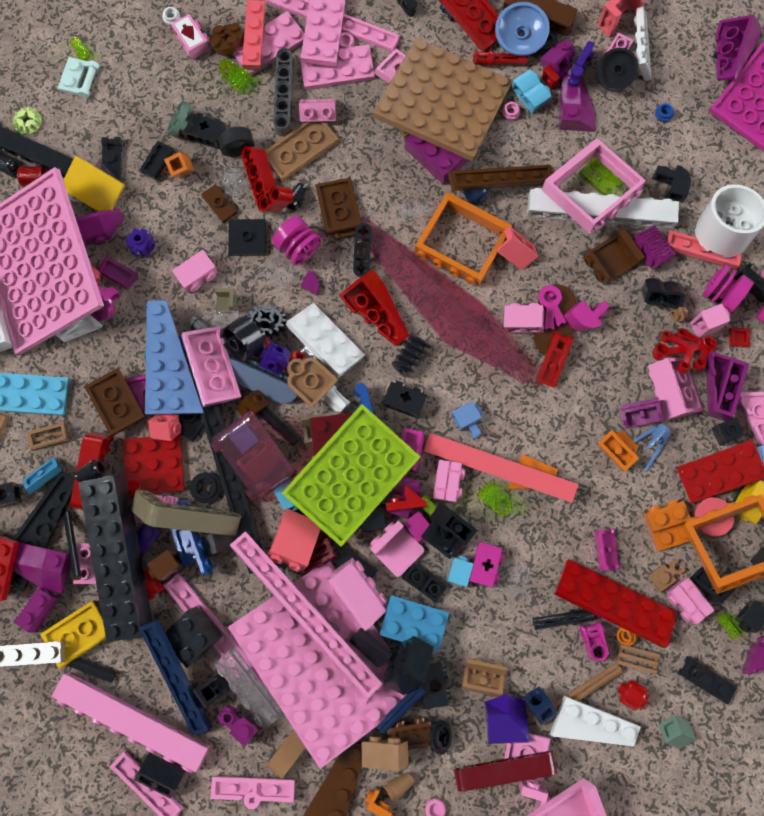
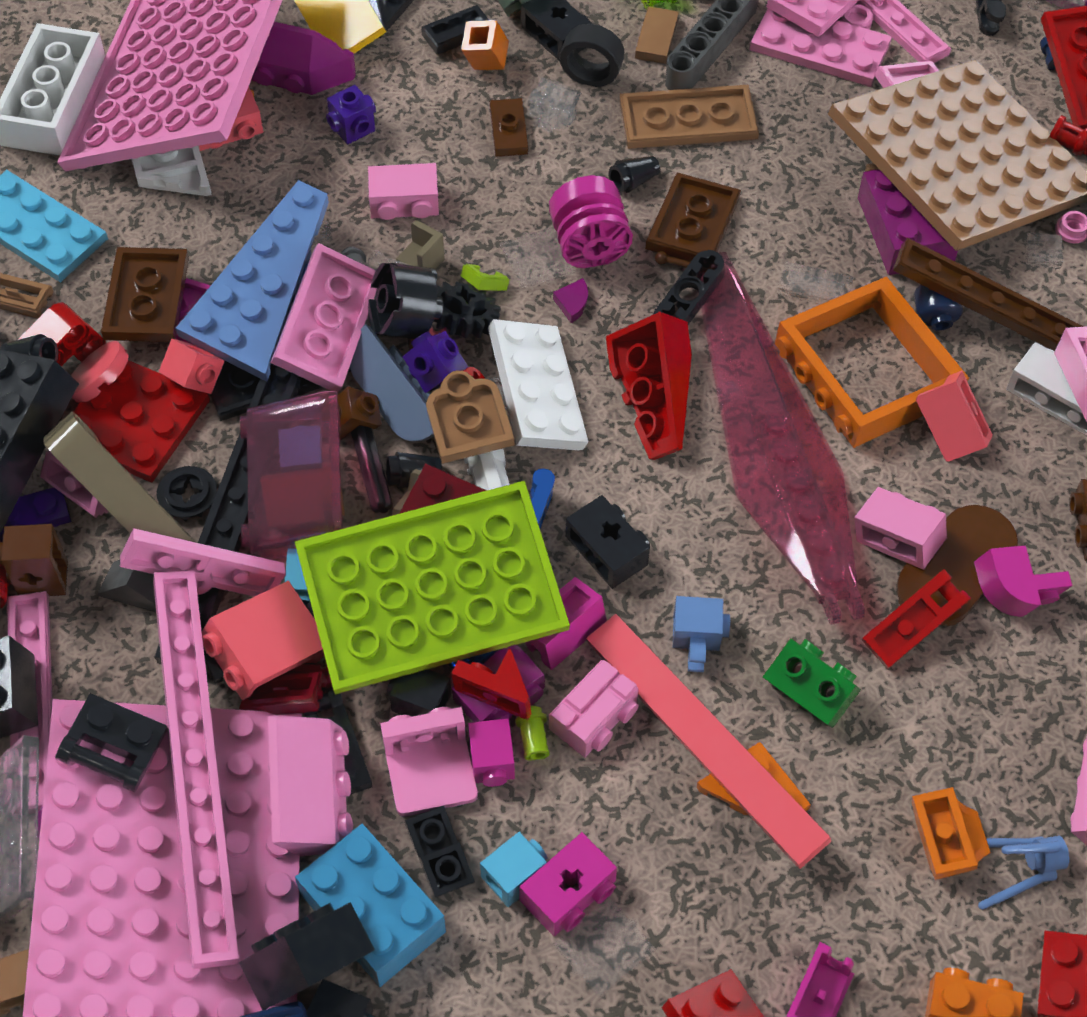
camera: 30 degrees right, 20 degrees down
(108, 296) = (230, 158): dark pink tile -> none
(117, 272) = (288, 139): magenta tile -> none
(122, 455) = (99, 367): none -> coral tile
(192, 548) = (95, 563): blue bracket -> none
(247, 237) = (517, 190): black plate -> none
(247, 523) = (212, 565): none -> bright pink hinge
(255, 106) = (656, 35): none -> medium nougat tile
(264, 298) = (484, 281): none -> lime tile
(266, 193) = (592, 140): red beam -> none
(267, 623) = (116, 731): none -> black plate
(293, 417) = (403, 464): none -> black cone
(317, 110) = (749, 78): bright pink bracket -> none
(370, 647) = (264, 888): black slope -> none
(410, 355) = (662, 478): black piece -> none
(459, 530) = (553, 773): black brick -> none
(492, 497) = (660, 784): clear neon green piece -> none
(531, 416) = (813, 680): none -> green brick
(550, 298) = (968, 522): dark pink piece -> none
(642, 413) = (1031, 793): magenta hinge -> none

